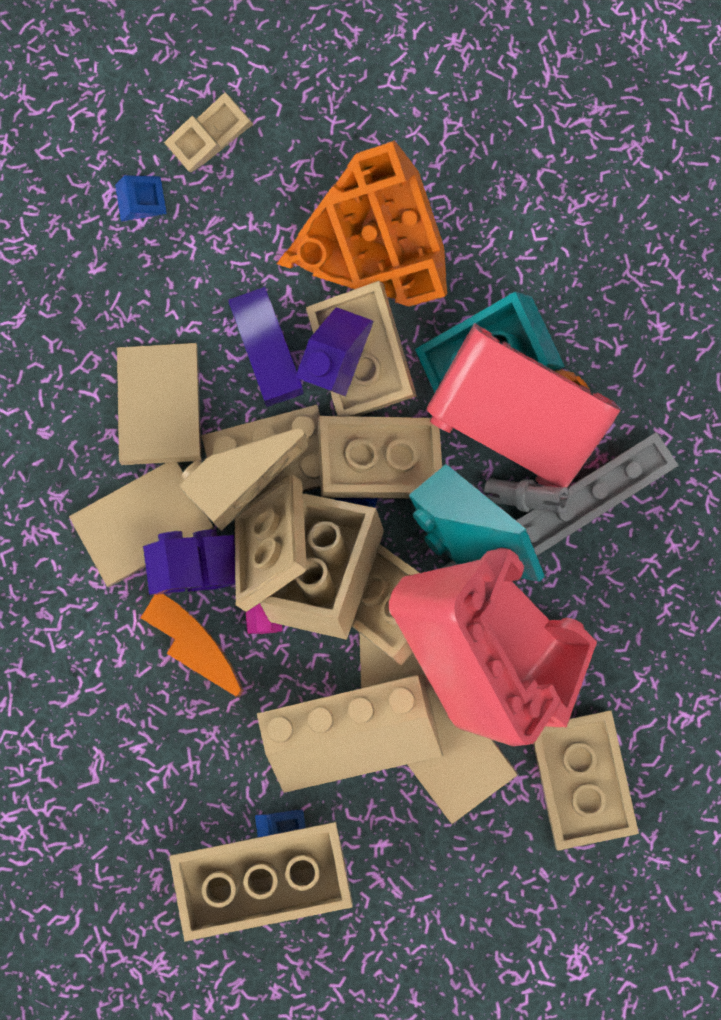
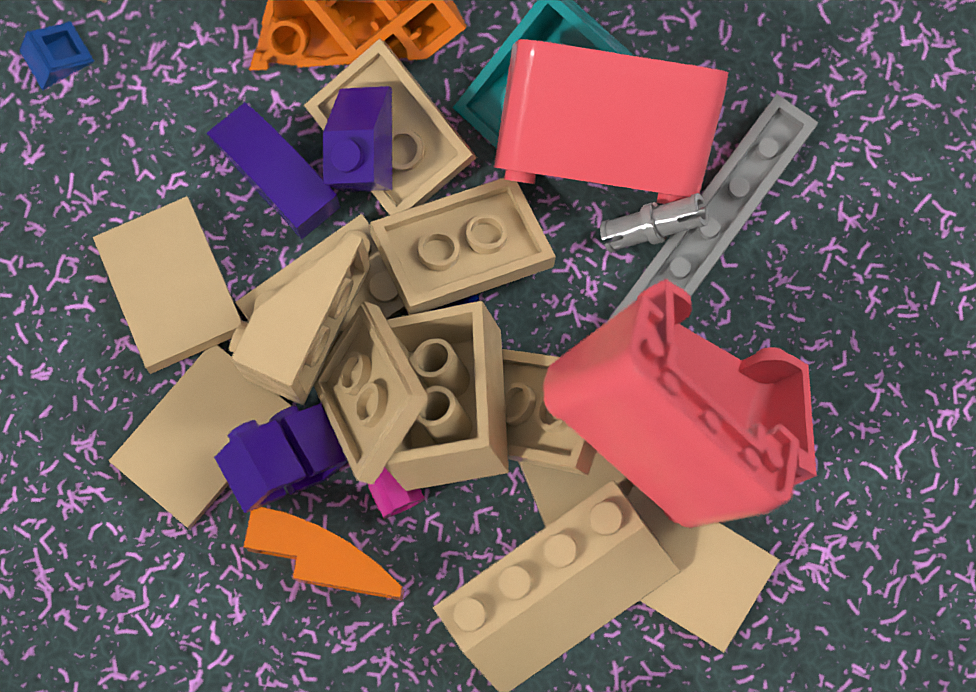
camera: 20 degrees left, 5 degrees down
(468, 523) = (596, 273): teal slope -> none
(585, 782) = (862, 537): tan plate -> none

